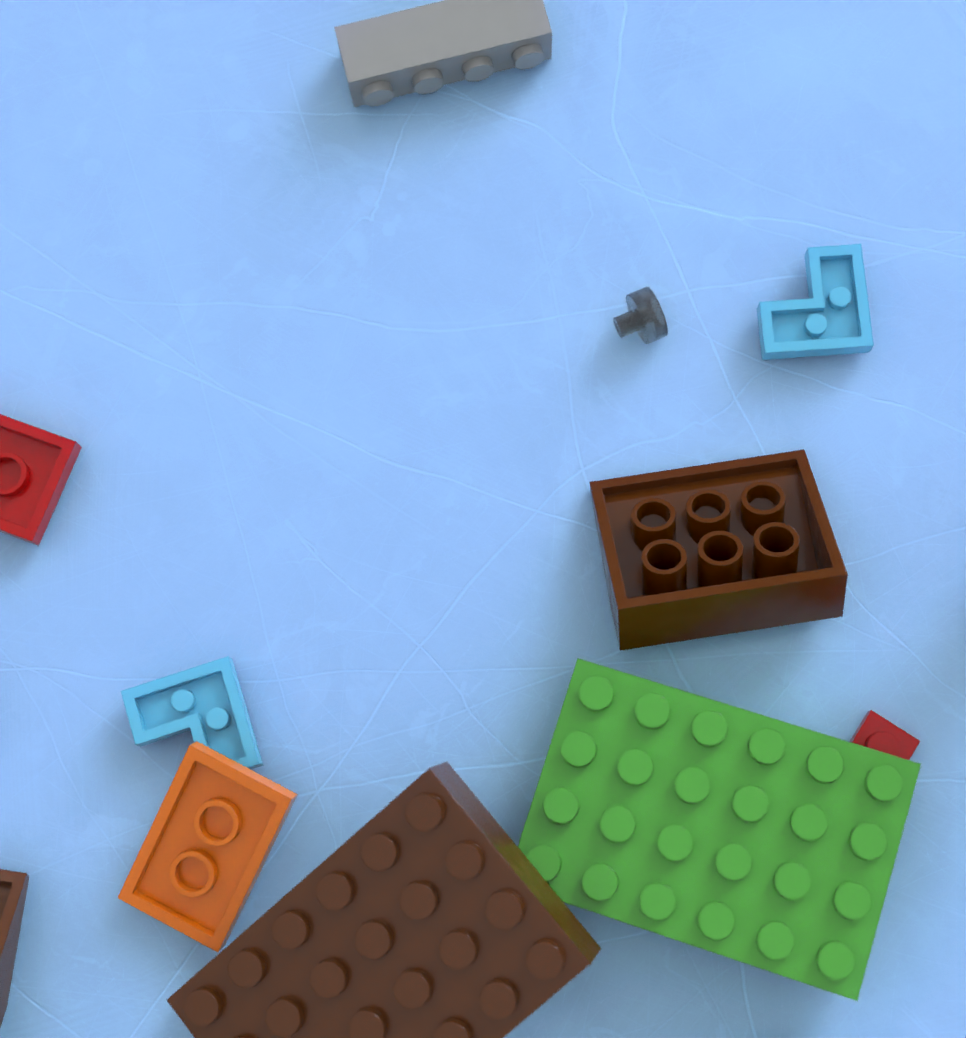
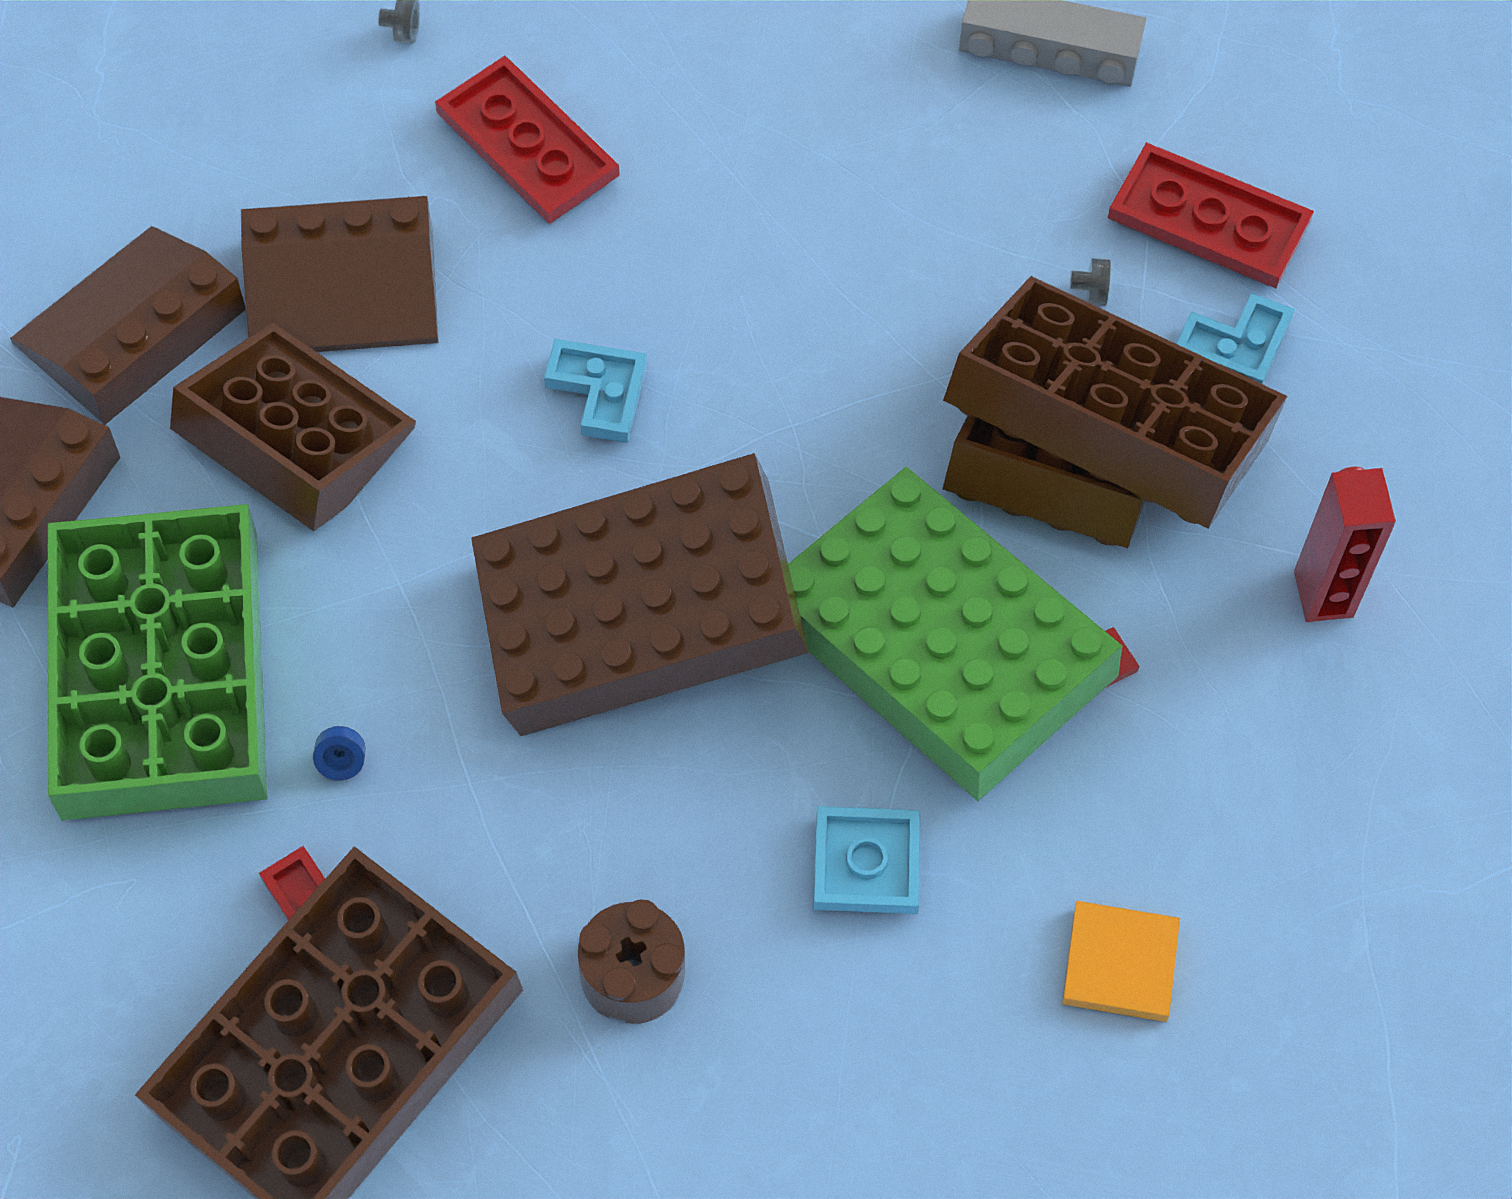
camera: 20 degrees right, 15 degrees down
(207, 846) = (558, 460): orange plate -> none
(716, 173) = (1210, 215): none -> red plate
(760, 468) = (1115, 400): none -> reddish brown brick

